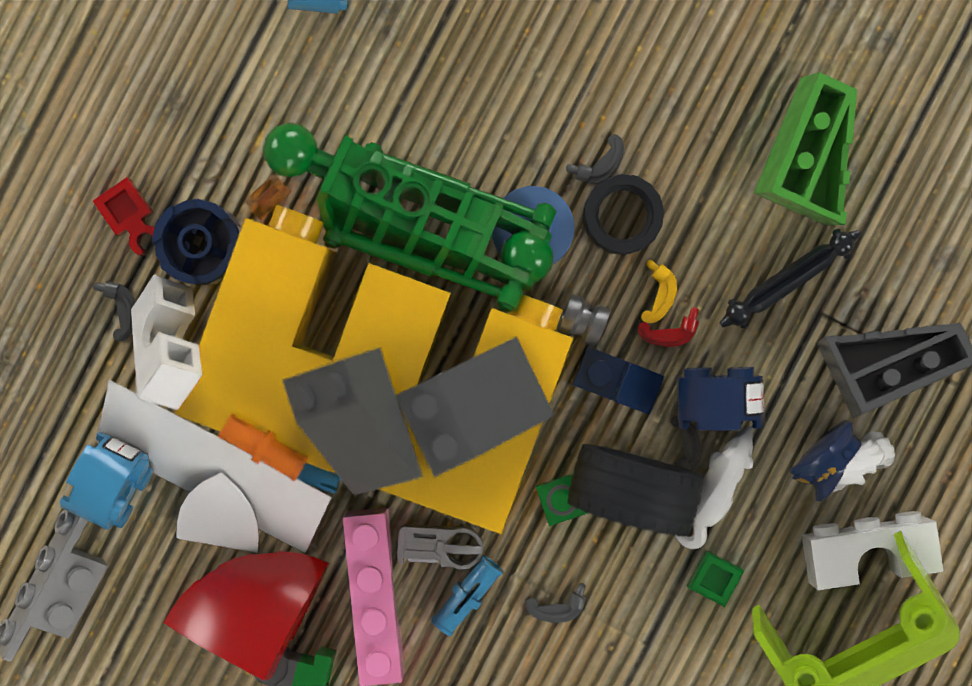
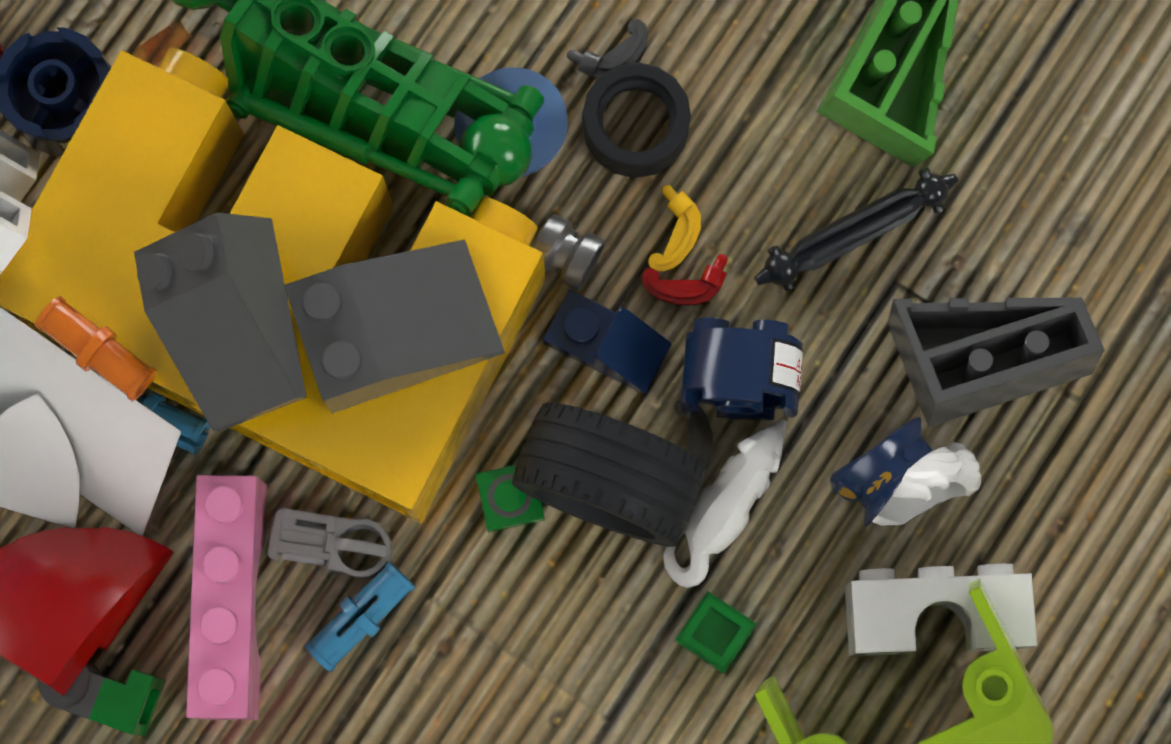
camera: 10 degrees right, 10 degrees down
(559, 612) = (489, 657): dark grey piece -> none

